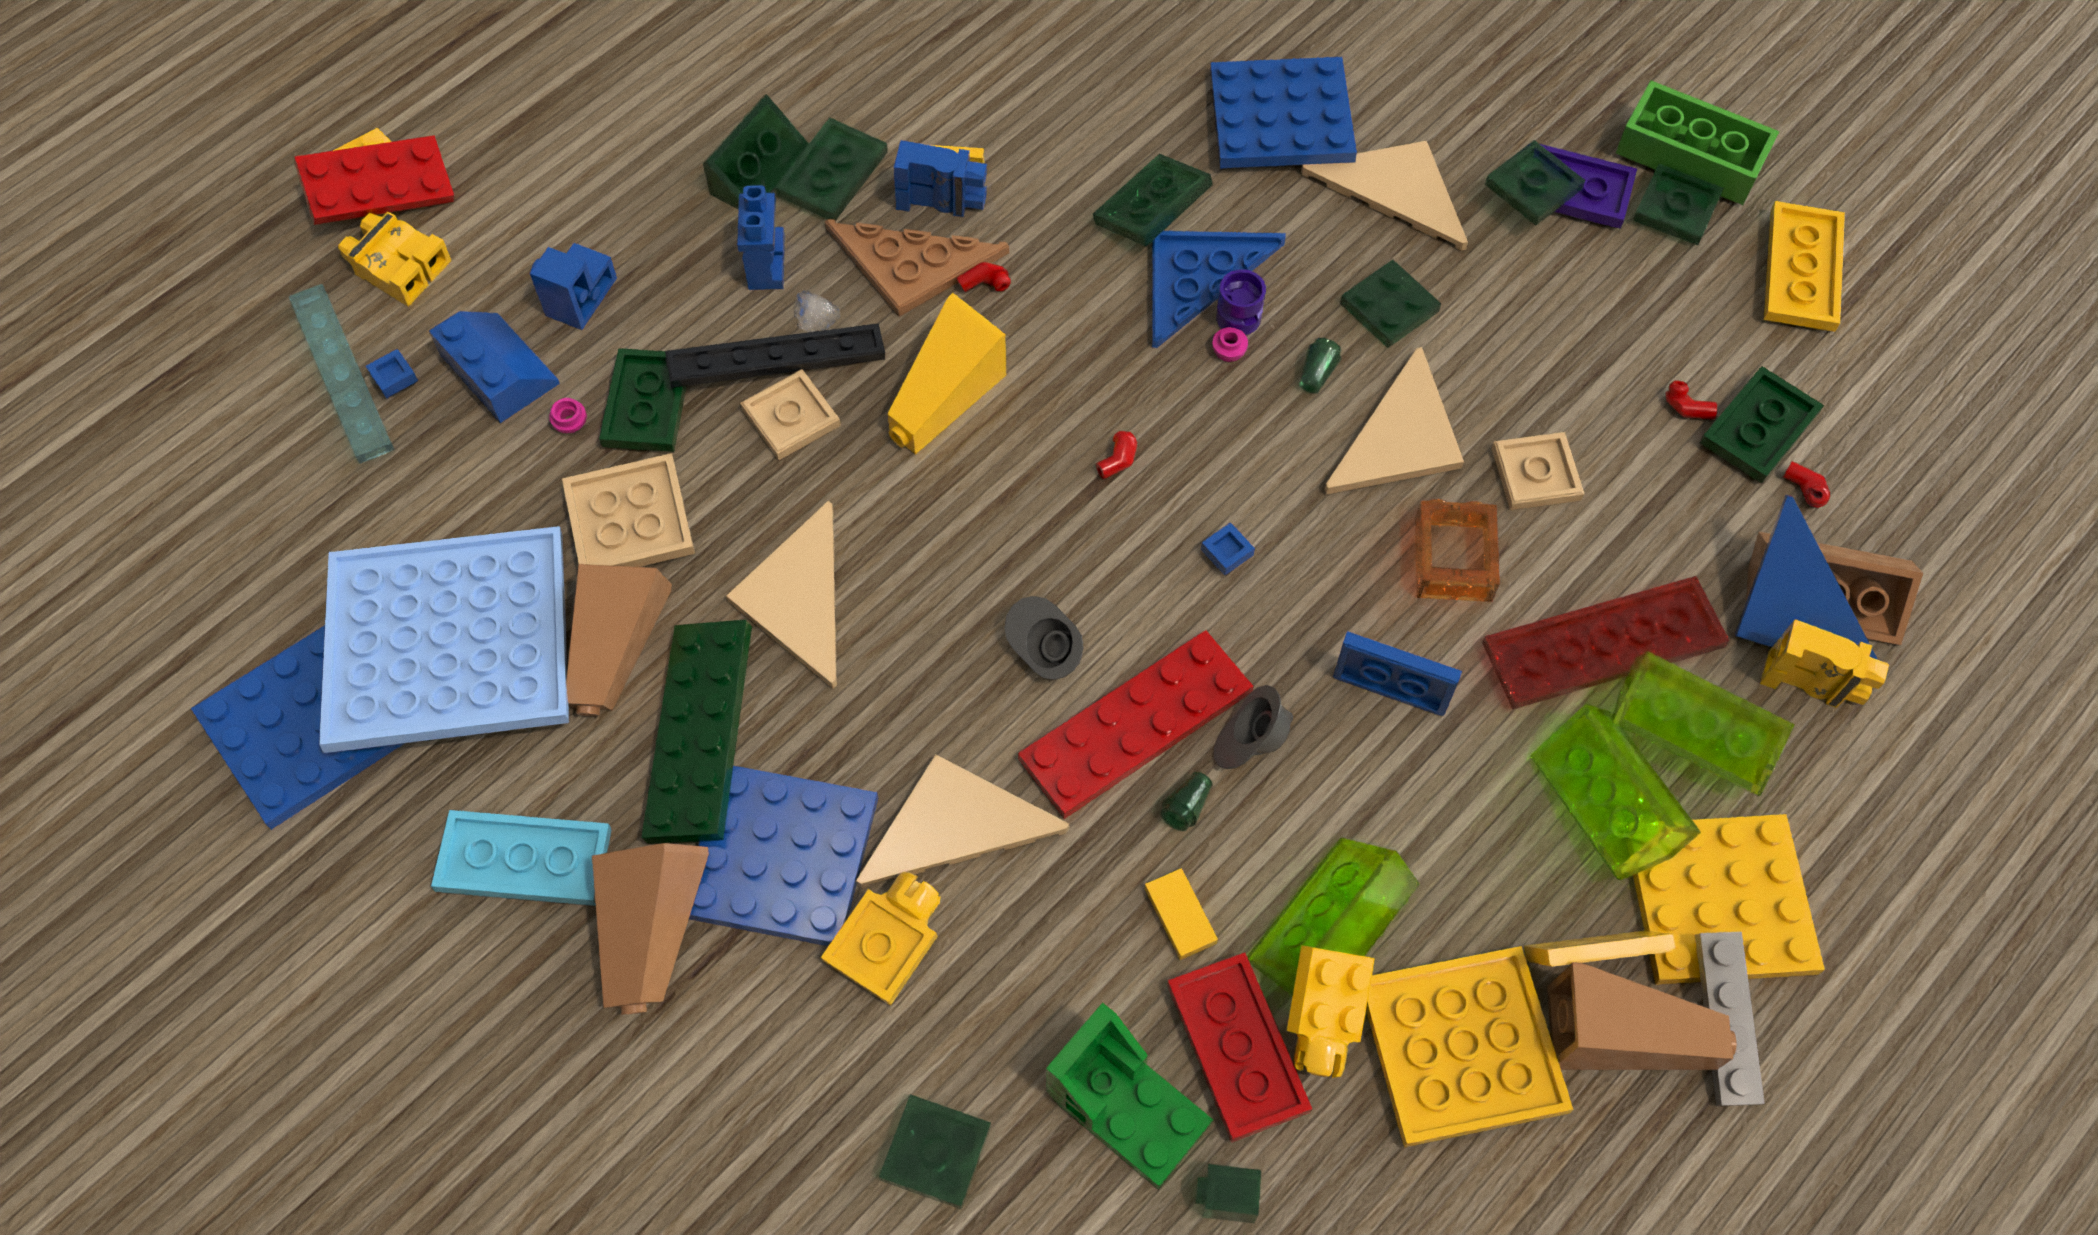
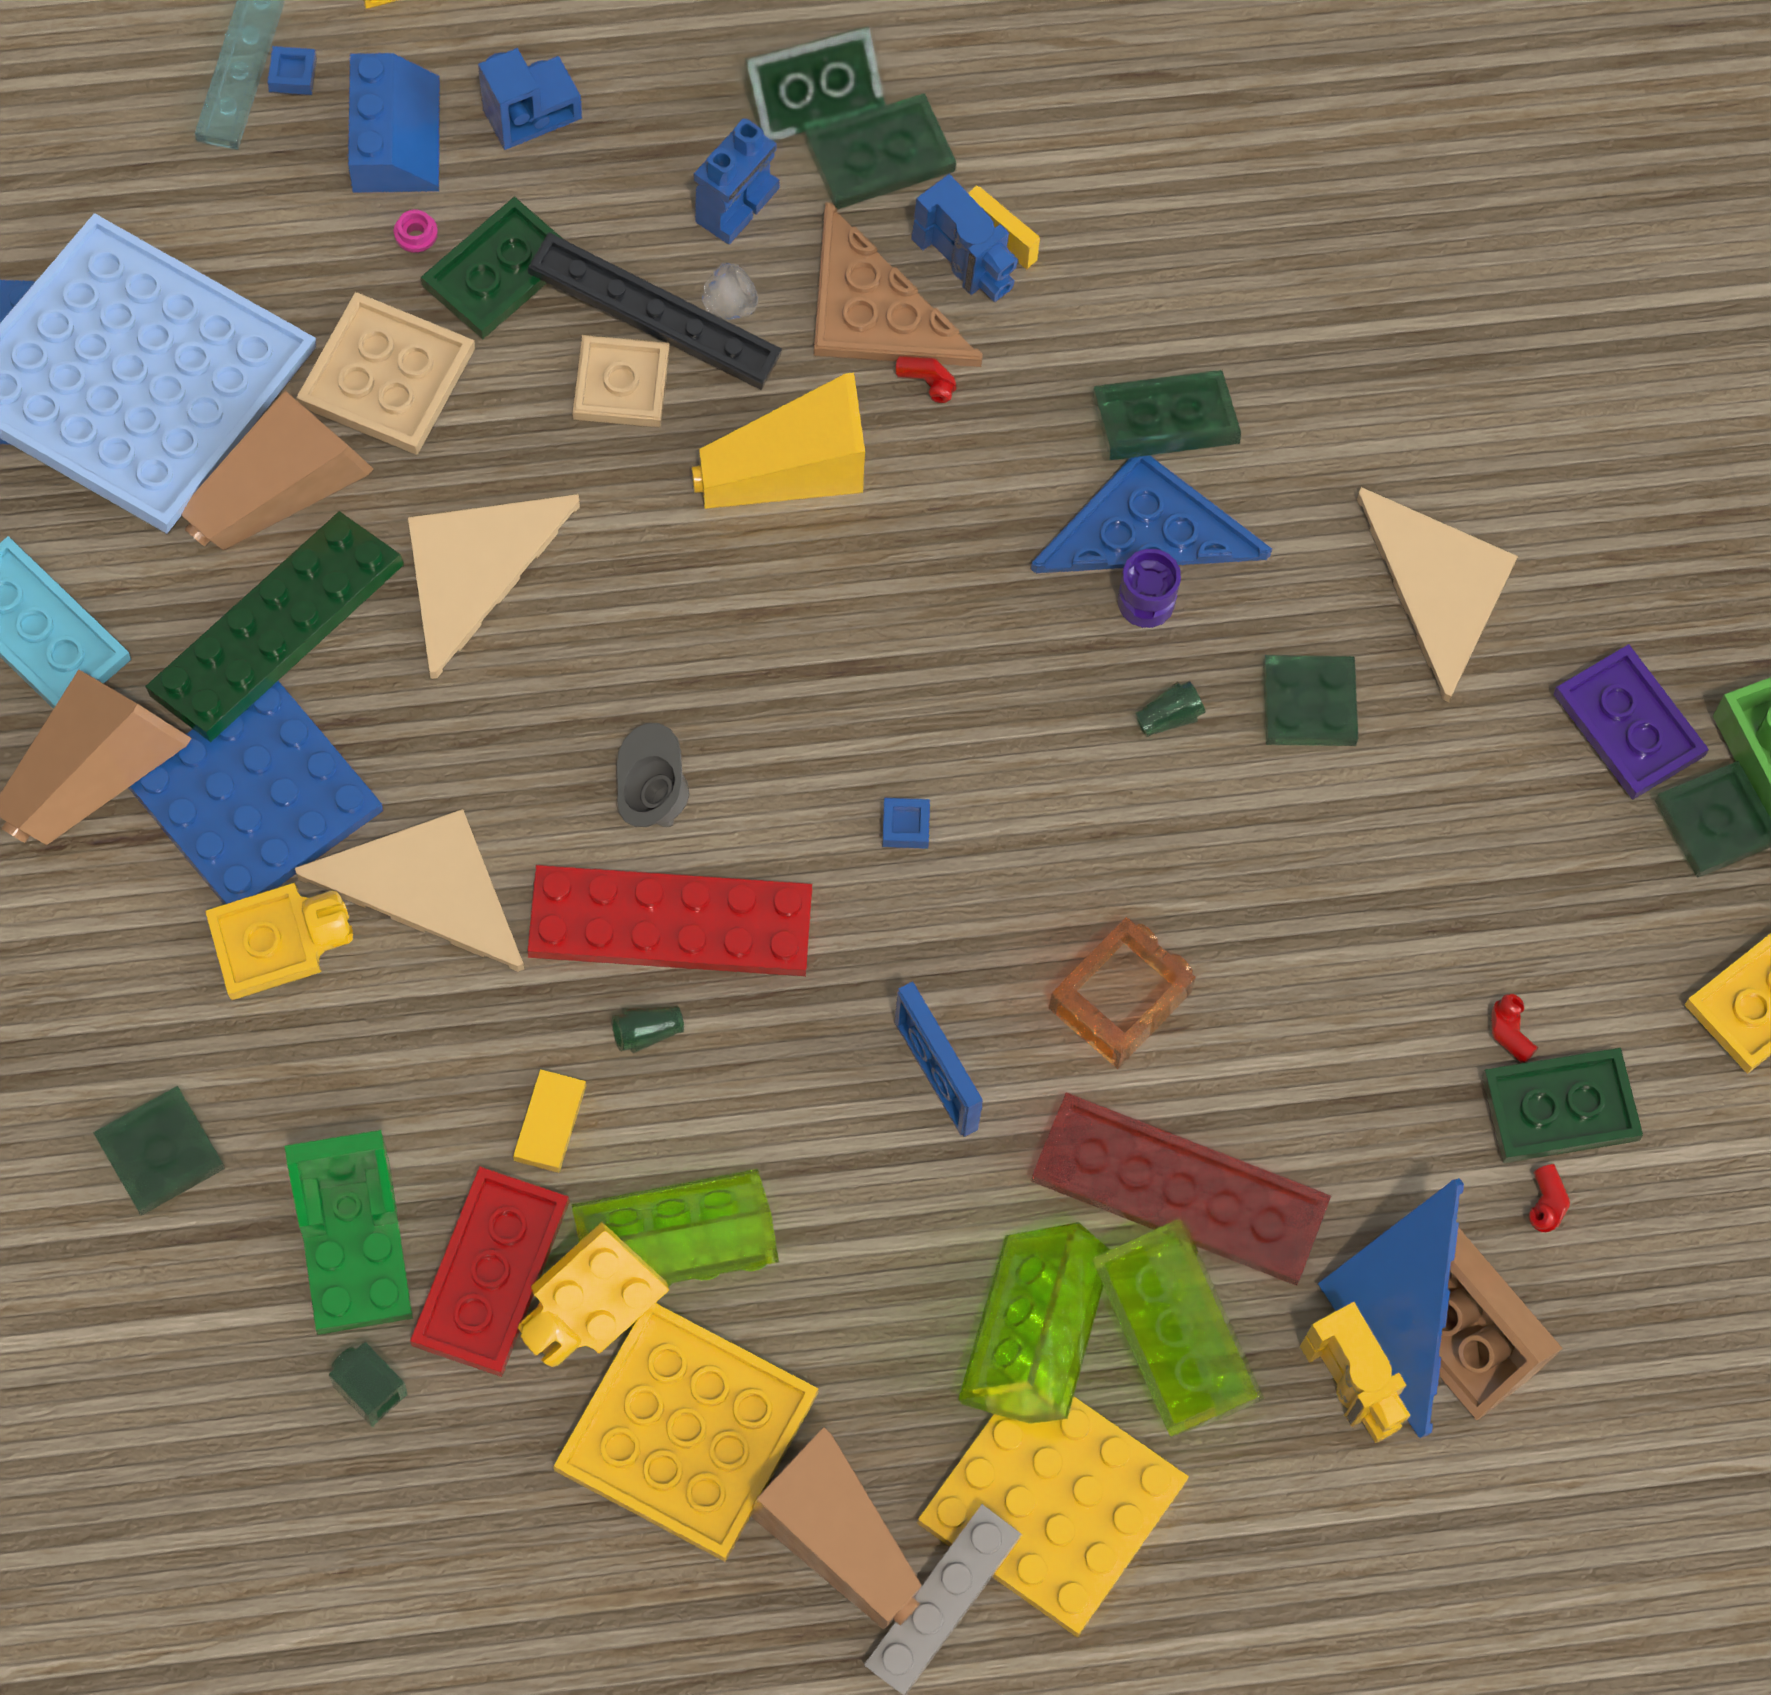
camera: 35 degrees right, 5 degrees up
(1122, 456) = (894, 656): red arm -> none
(1226, 351) = (1102, 633): dark pink plate -> none
(1255, 729) = (767, 1010): dark grey piece -> none
(1282, 112) = (1395, 415): blue plate -> none
(1403, 436) = (1187, 844): tan tile -> none
(1535, 182) = (1572, 684): clear green plate -> none
(1537, 471) = (1288, 978): tan tile -> none
(1599, 948) = (877, 1442): yellow tile -> none

